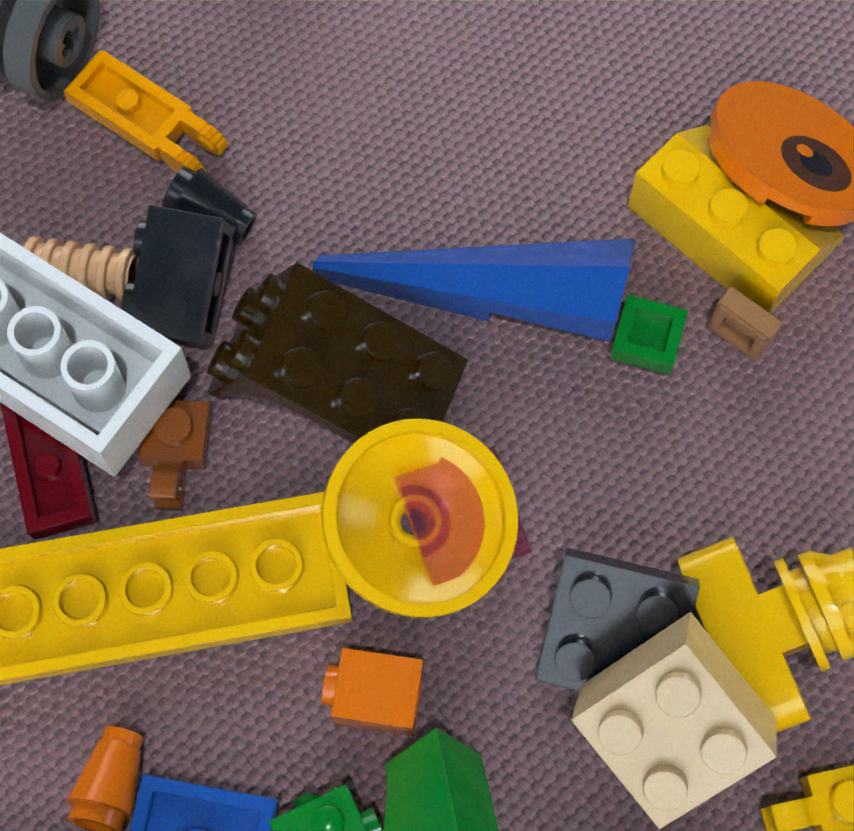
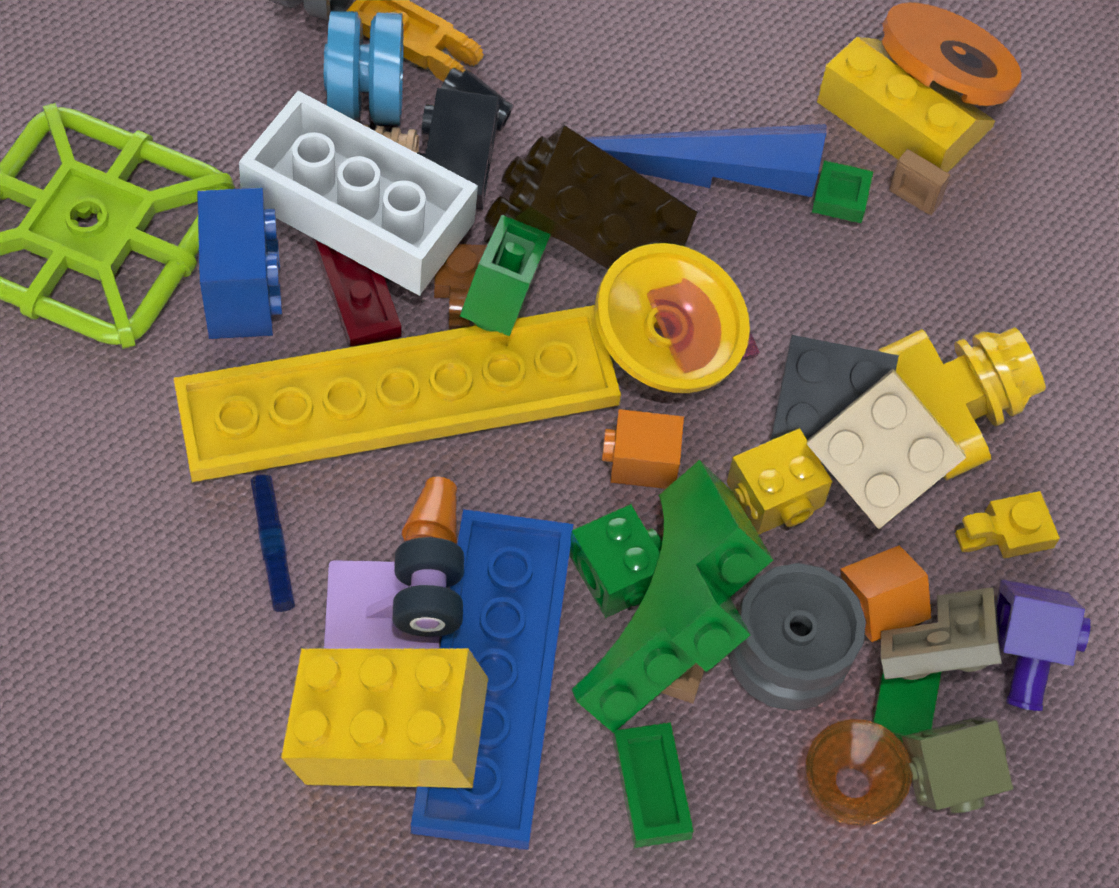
camera: 10 degrees left, 10 degrees down
(71, 170) = (365, 68): none -> dark azure wheel
(213, 459) = (504, 275): none -> green slope
(537, 745) = (779, 482): none -> yellow head

